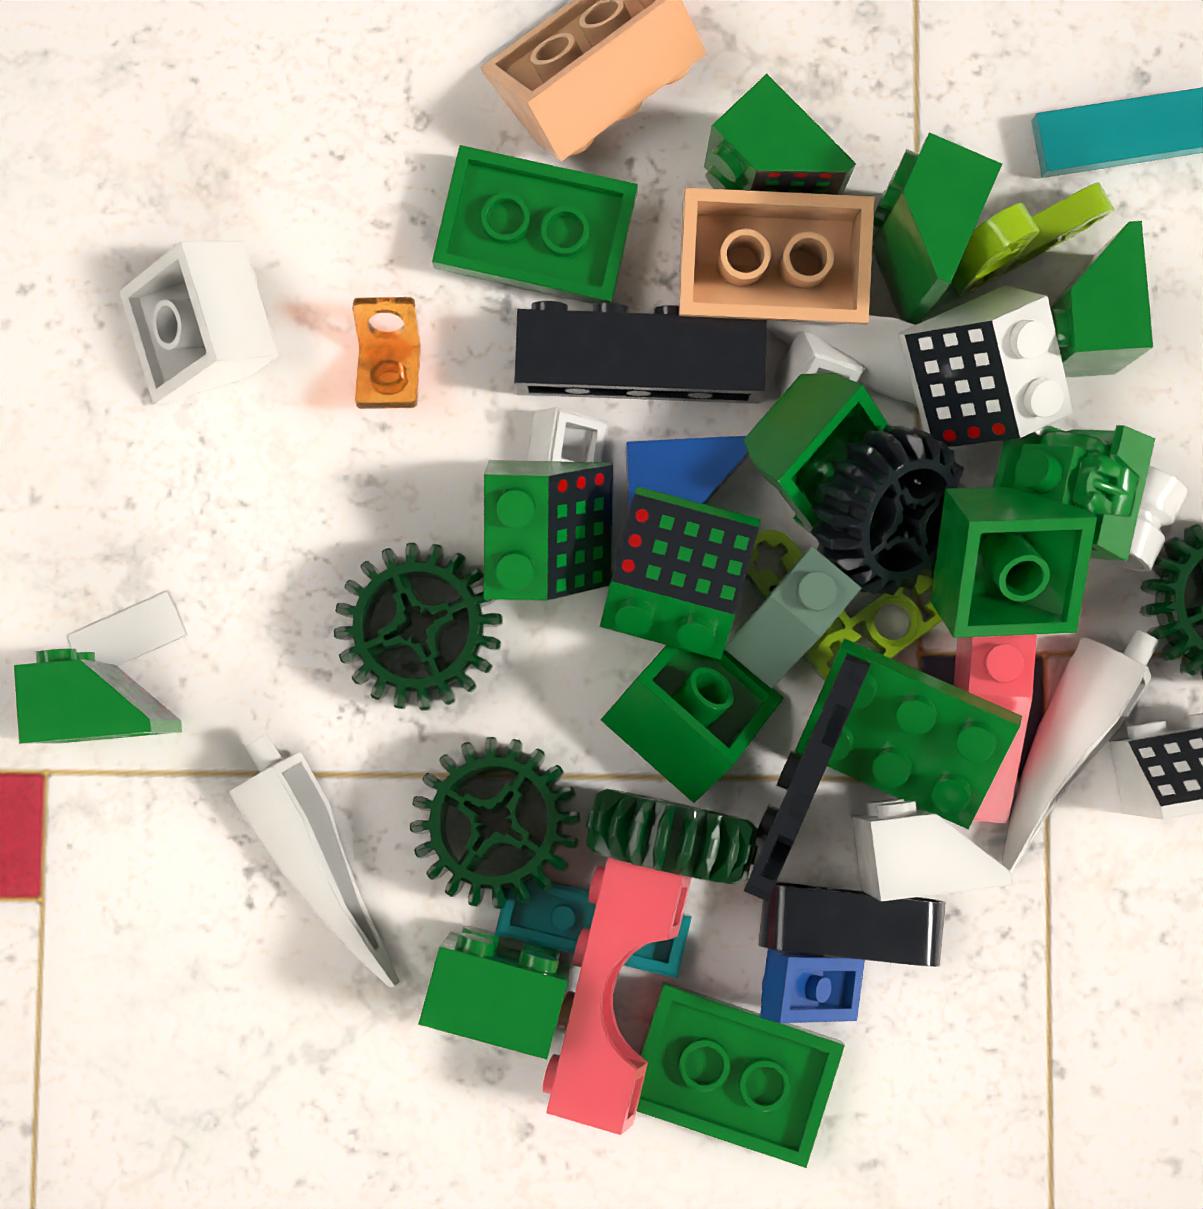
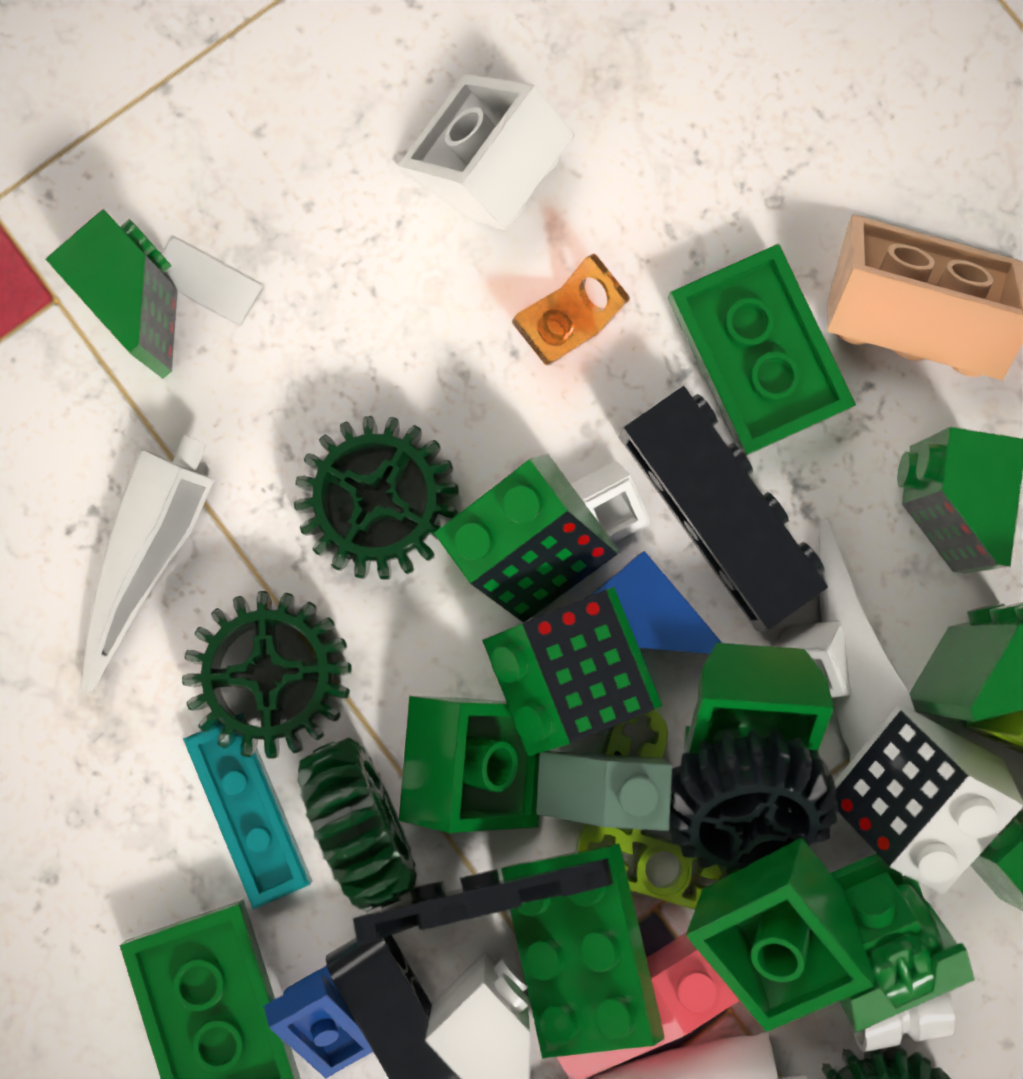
camera: 50 degrees right, 0 degrees up
(496, 992) = (130, 778): green brick -> none
(598, 1072) = (131, 903): coral arch -> none
(776, 256) = (884, 558): light nougat slope -> none

